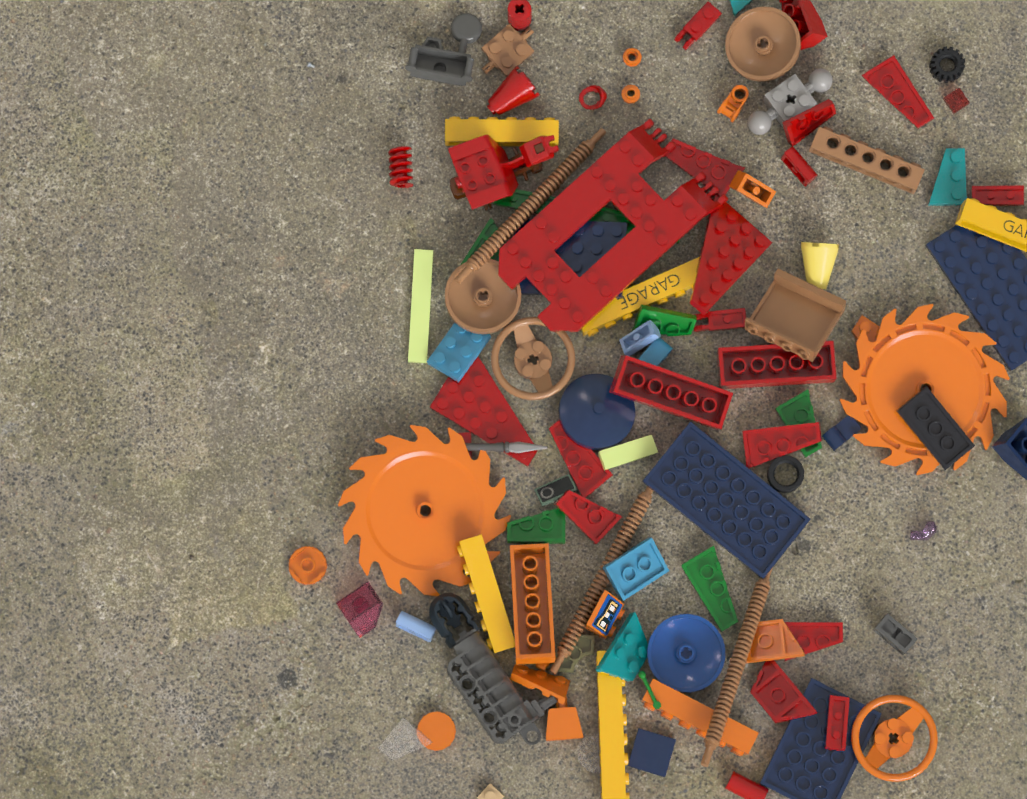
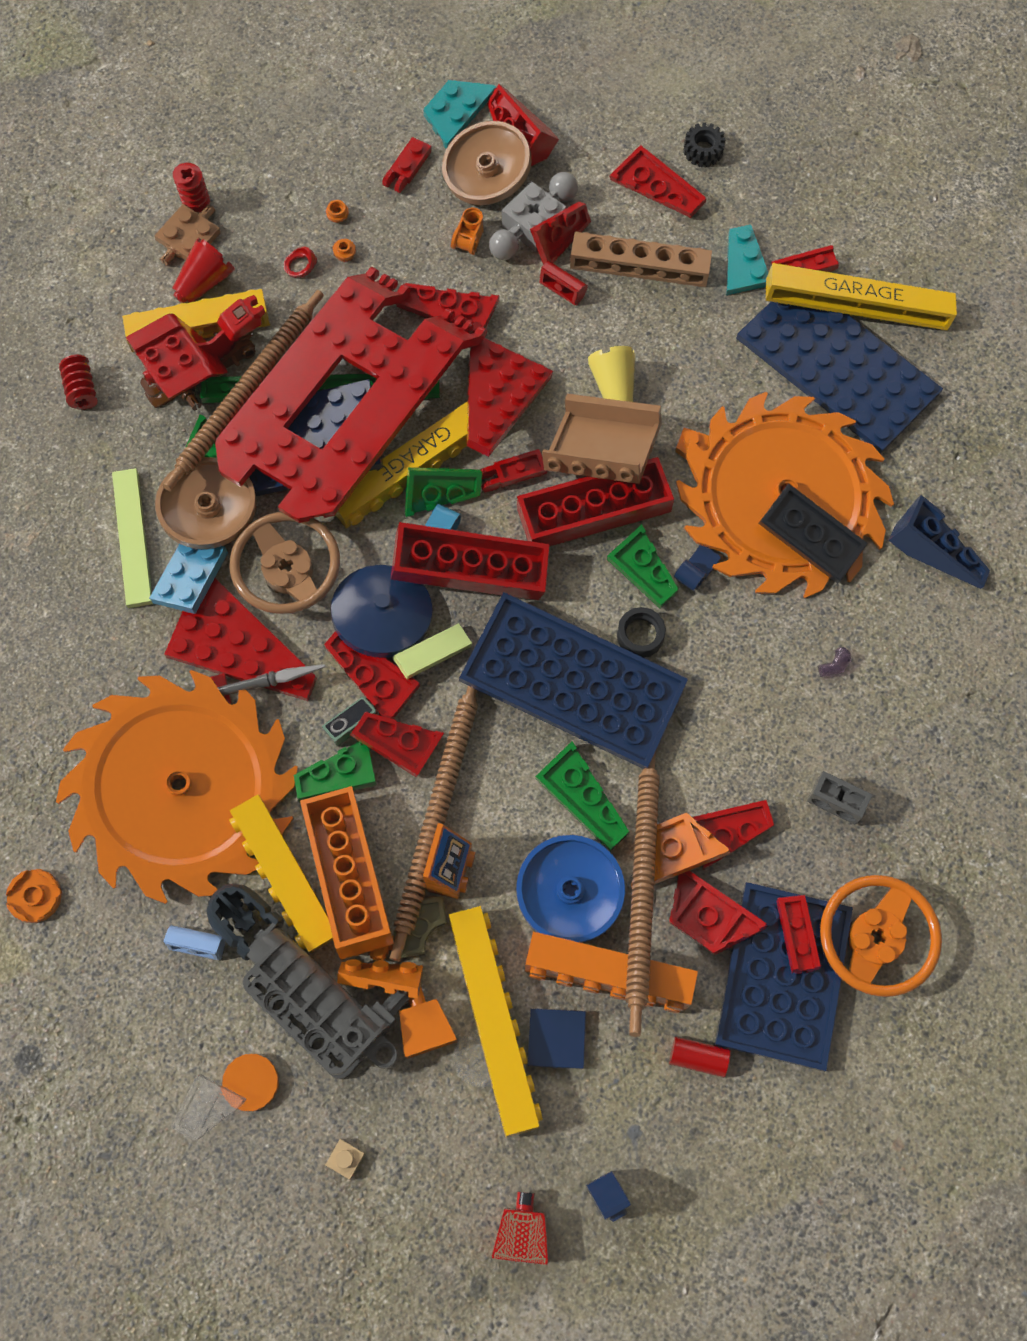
camera: 15 degrees left, 10 degrees down
(361, 609) = (115, 937): clear pink slope -> none
(446, 66) = (110, 260): dark grey piece -> none
(626, 651) = (488, 907): teal wing -> none
(636, 569) = (476, 794): dark azure plate -> none
(639, 338) = (417, 507): light blue brick -> none
(656, 704) = (547, 966): green hinge -> none
(752, 189) = (513, 313): orange brick -> none
(769, 443) = (612, 597): red wing -> none
(956, 101) = (725, 180): clear red tile -> none

